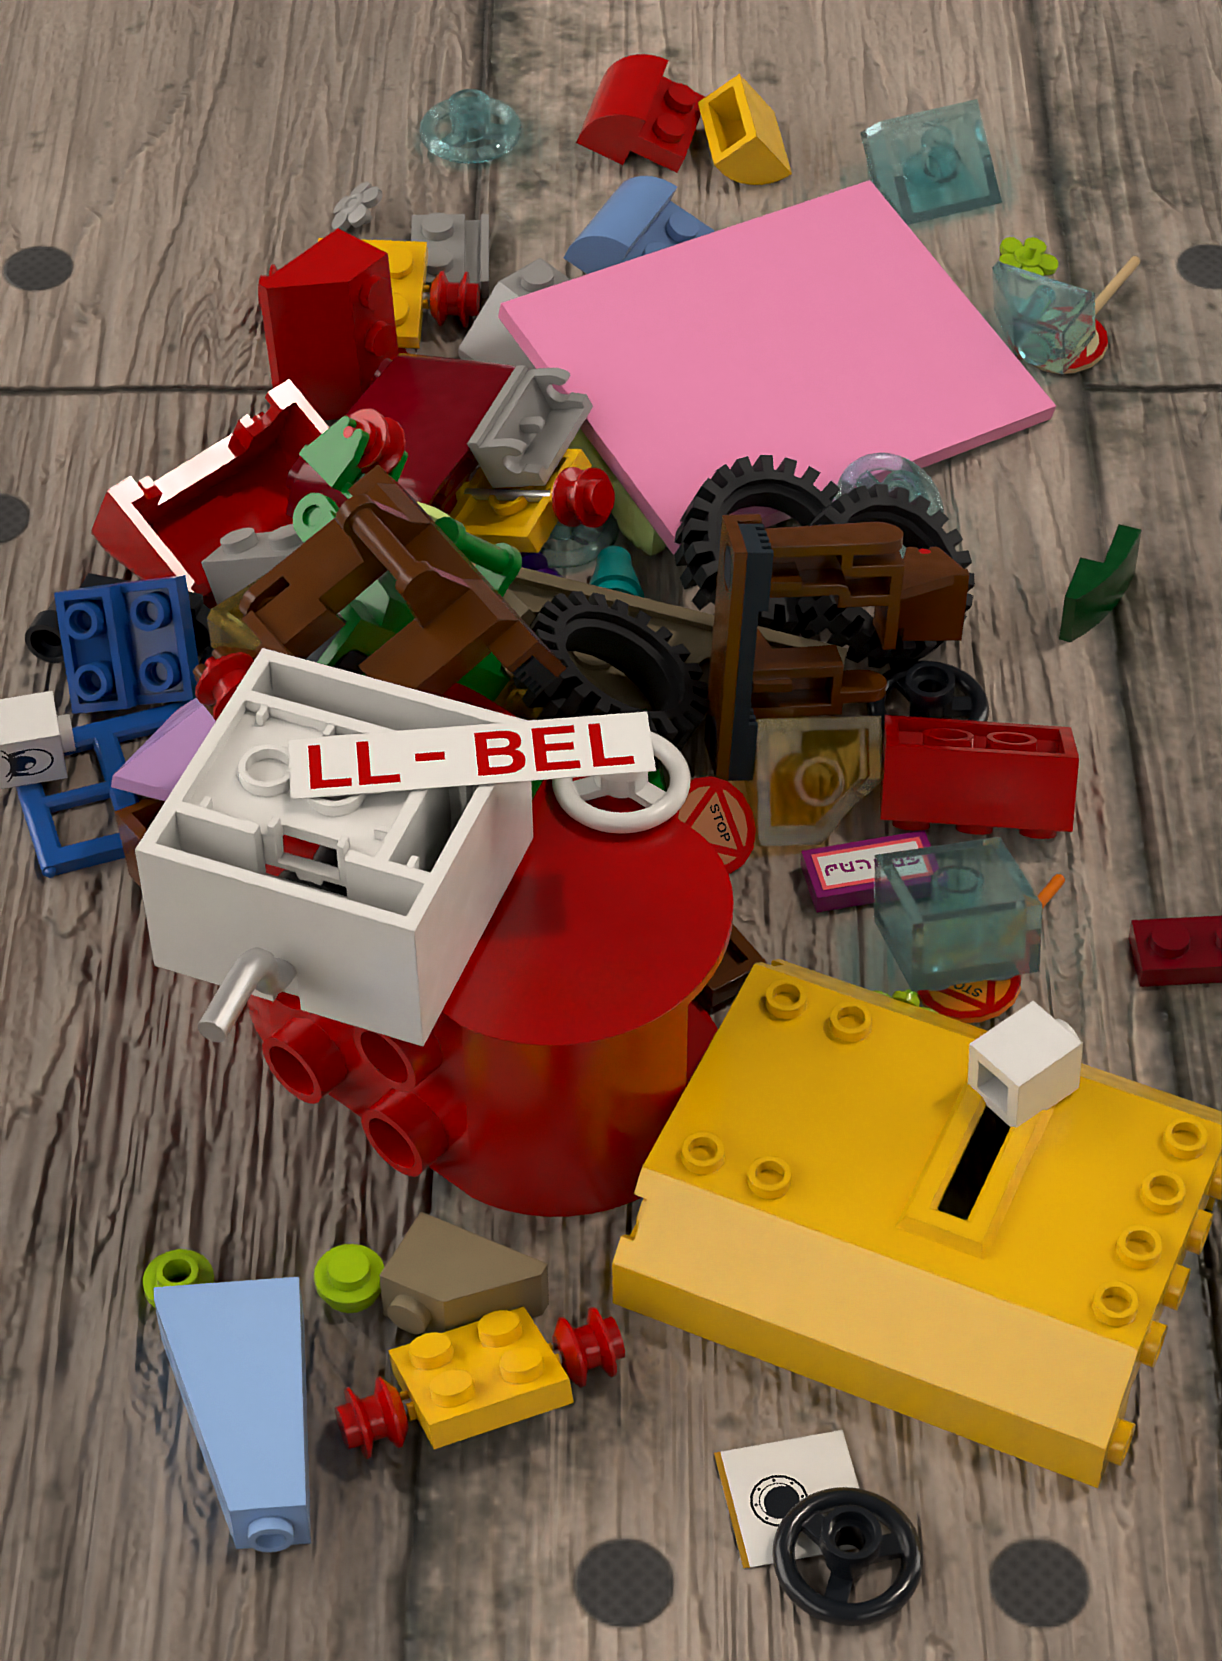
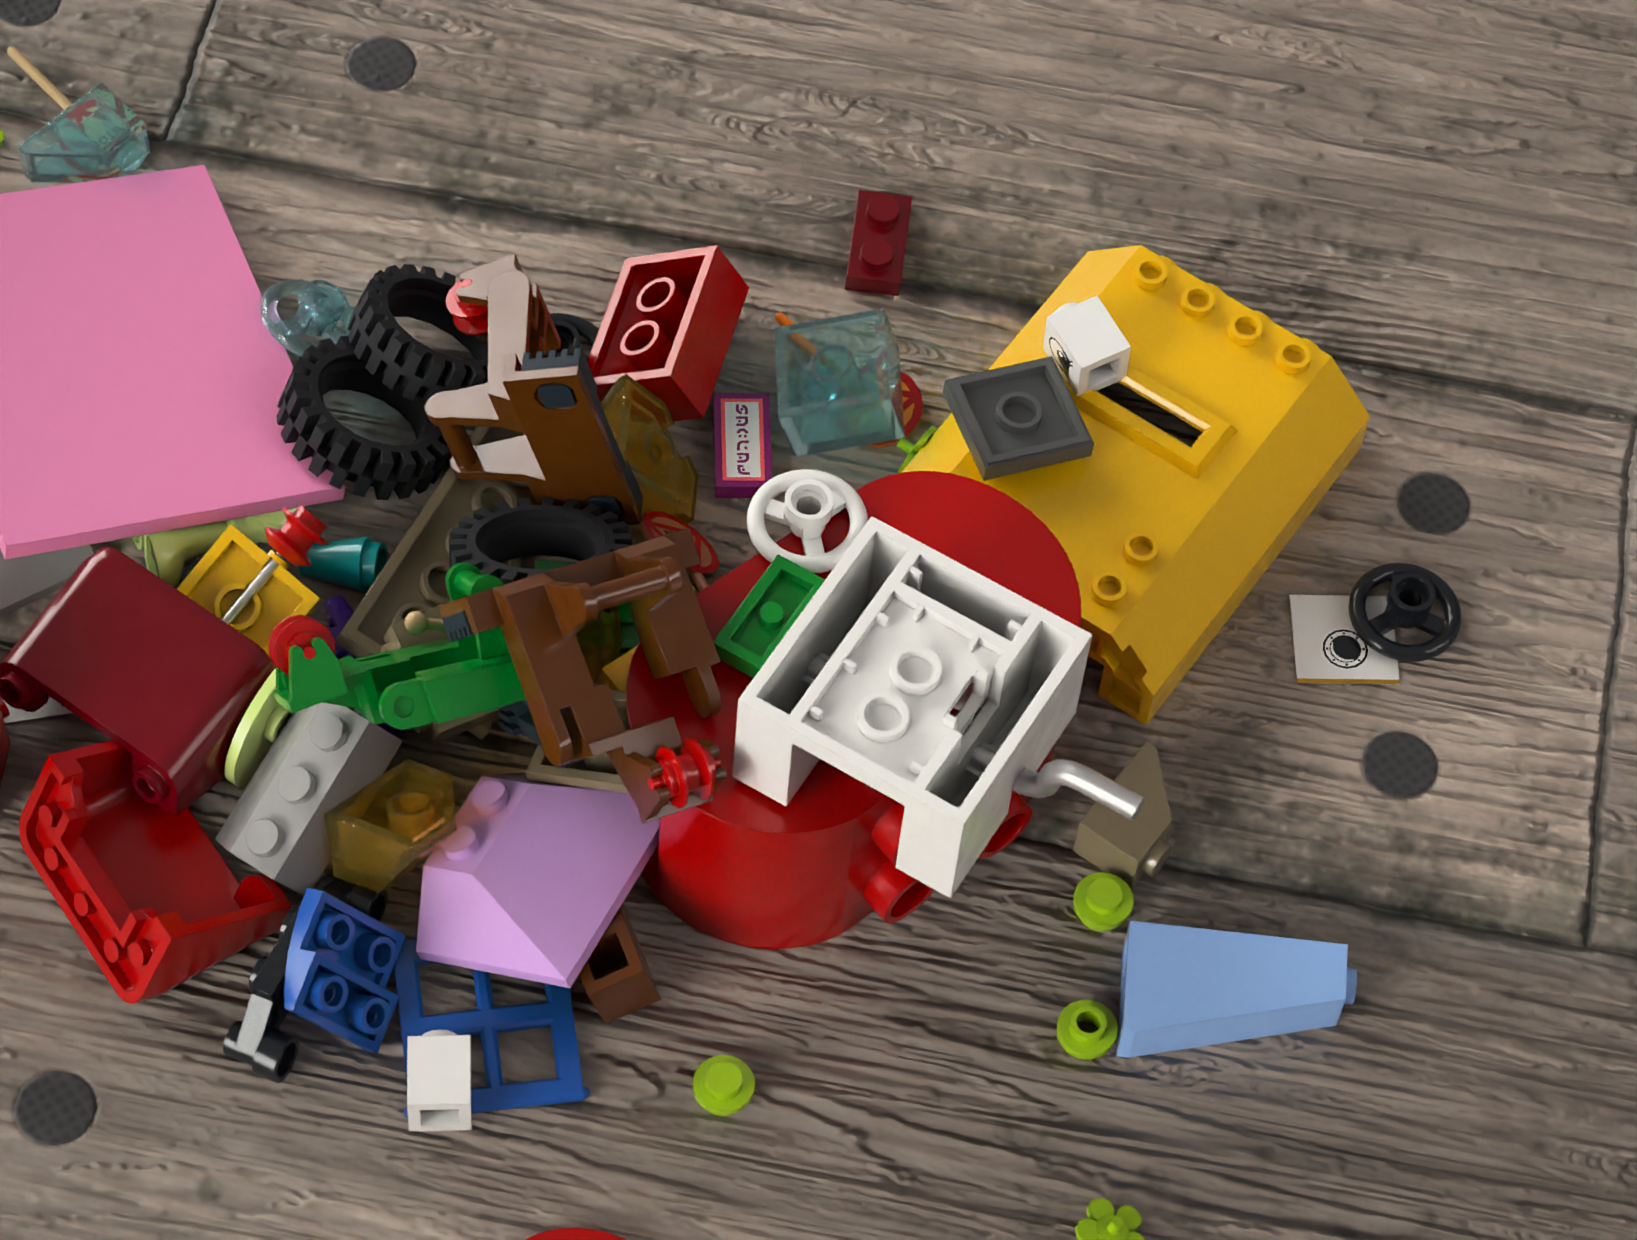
camera: 85 degrees left, 10 degrees up
(66, 974) = (723, 1085): none -> lime plate
(470, 755) = (905, 566): white sticker -> none
(479, 1378) = (1229, 818): yellow plate -> none
(528, 428) = (188, 558): light grey hinge -> none
(901, 1020) = (1018, 418): none -> dark grey plate
(1099, 585) = (465, 198): dark green slope -> none

